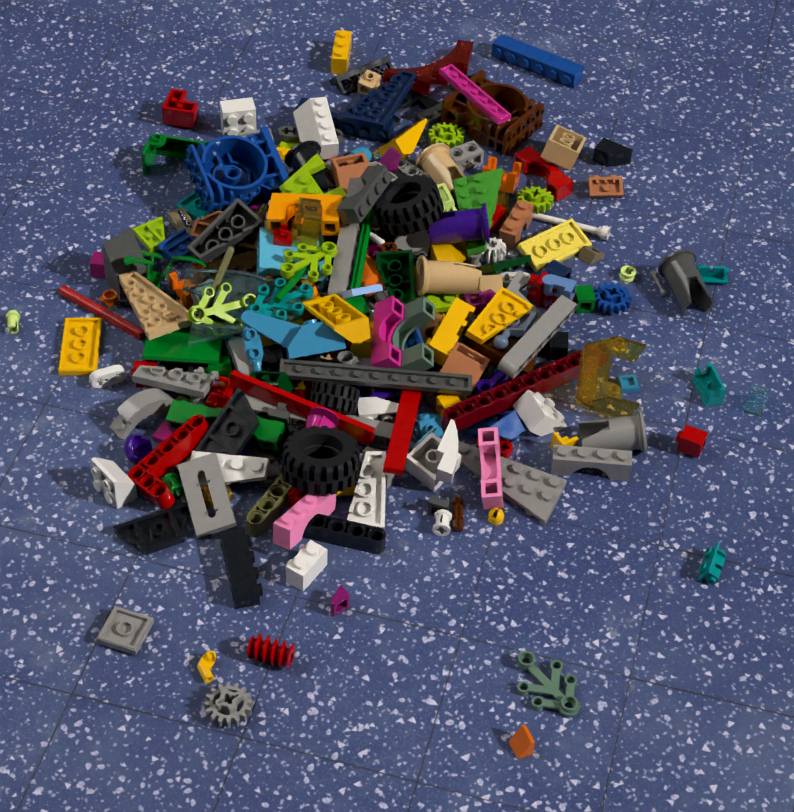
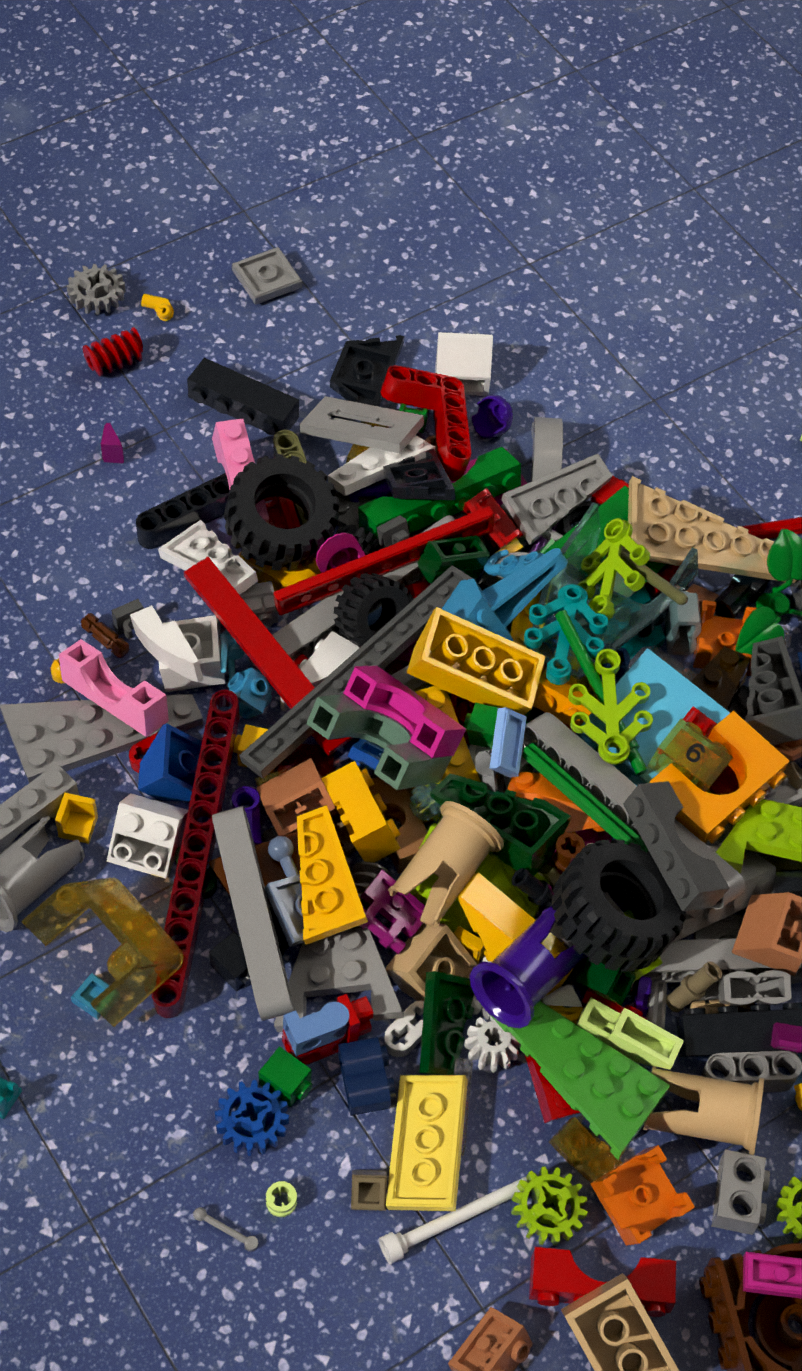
camera: 130 degrees right, 10 degrees up
(80, 346) = (722, 479): yellow tile -> none
(107, 376) = (641, 461): white beam -> none
(306, 565) = (183, 447): white brick -> none
(442, 522) = (103, 603): white bush -> none
(518, 219) = (523, 1134): nougat arch -> none
(685, 279) = (180, 1243): dark grey piece -> none
(717, 275) = (165, 1319): teal hinge -> none

